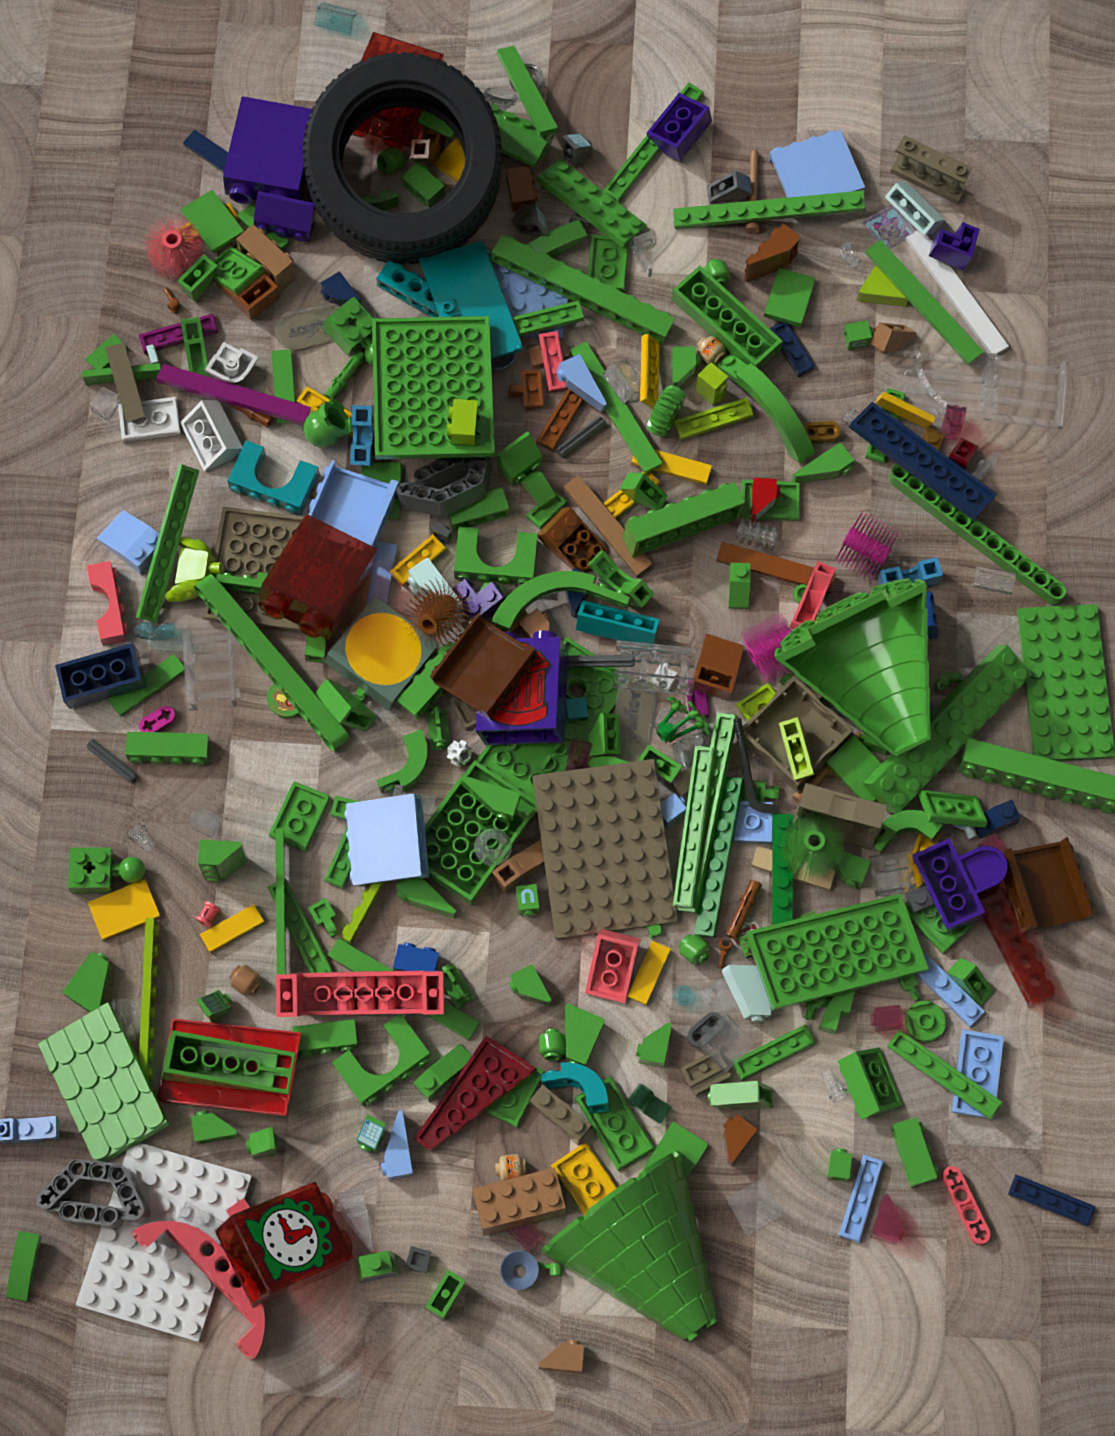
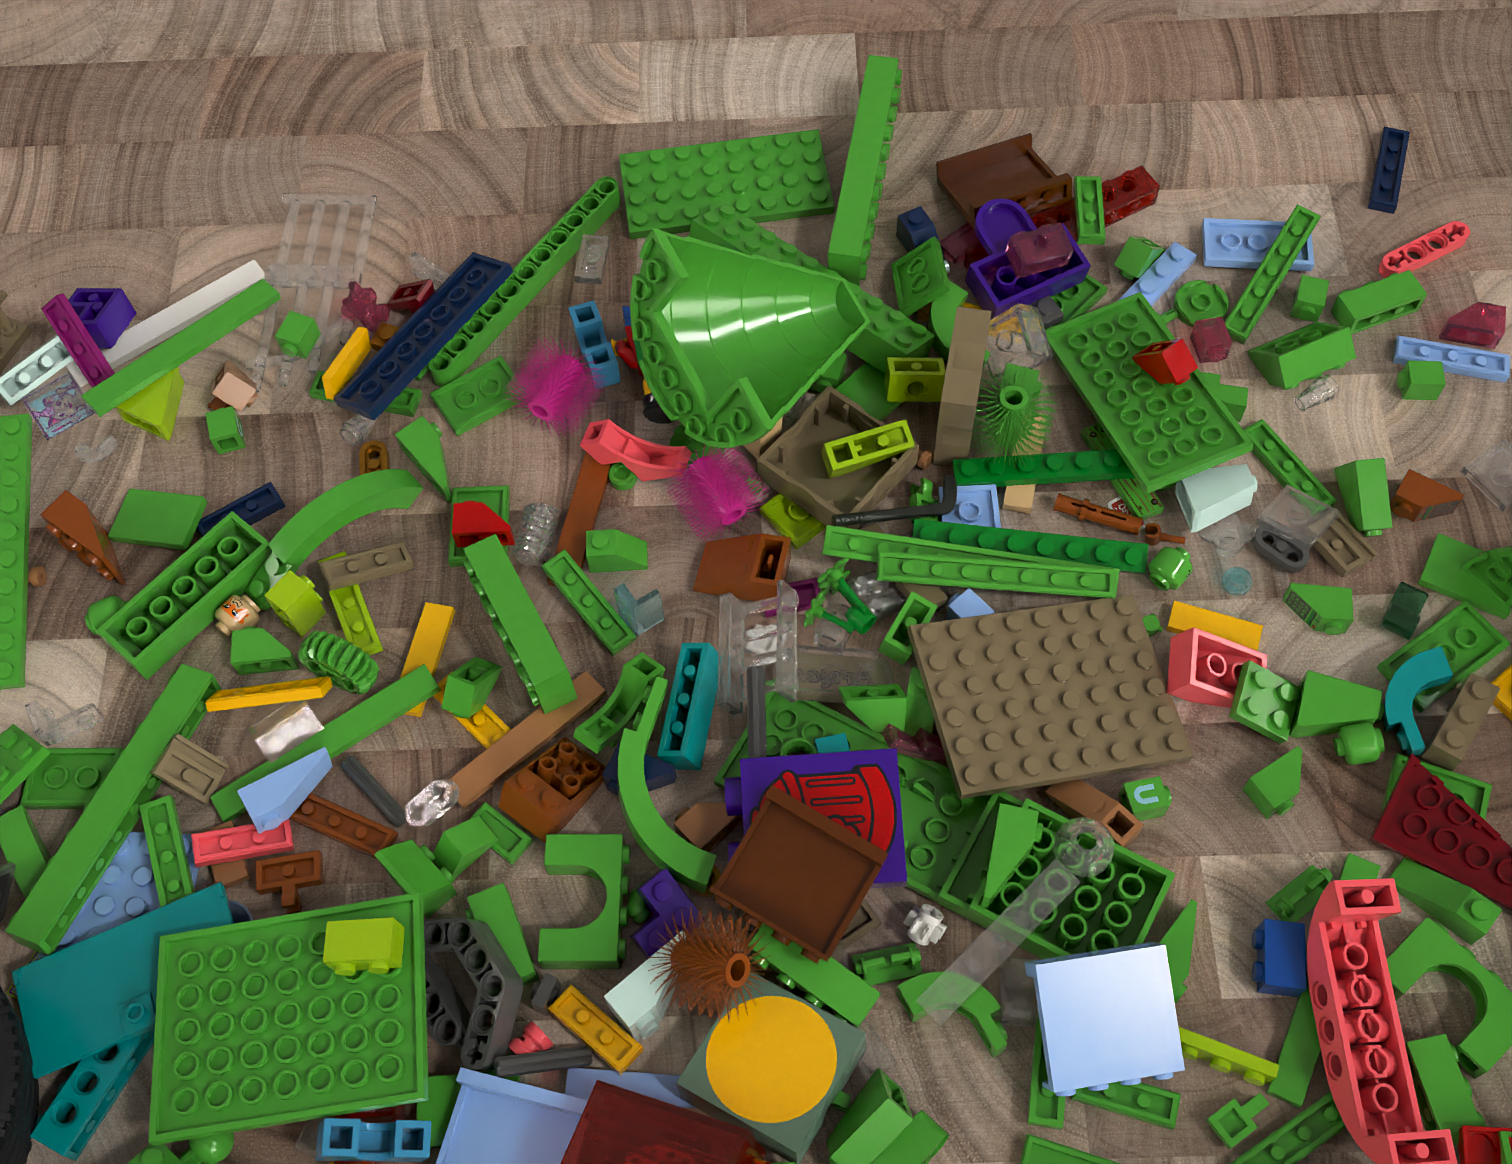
camera: 90 degrees left, 10 degrees down
(399, 528) = (542, 1061): none -> dark grey axle
(412, 523) = (531, 1040): none -> coral wheel
(438, 786) = (997, 942): none -> clear tile
(564, 470) = (428, 798): none -> clear beam
(588, 989) = (1264, 702): none -> bright green plate
(602, 328) = (189, 769): none -> dark tan plate
(686, 592) = (639, 614): none -> clear light blue panel
(702, 566) = (588, 602): none -> bright green tile
(740, 427) = (366, 566): none -> dark tan tile
(851, 963) = (1167, 361): none -> red slope
(857, 783) = (914, 379): none -> lime brick
(878, 497) = (477, 395): none -> bright green tile
(920, 1100) = (1309, 298): none -> bright green brick
(926, 235) = (77, 340): none -> magenta tile
(929, 376) = (297, 335): none -> bright green brick
(955, 898) = (1039, 250): none -> clear pink brick
(1009, 943) = (1089, 210): none -> bright green tile

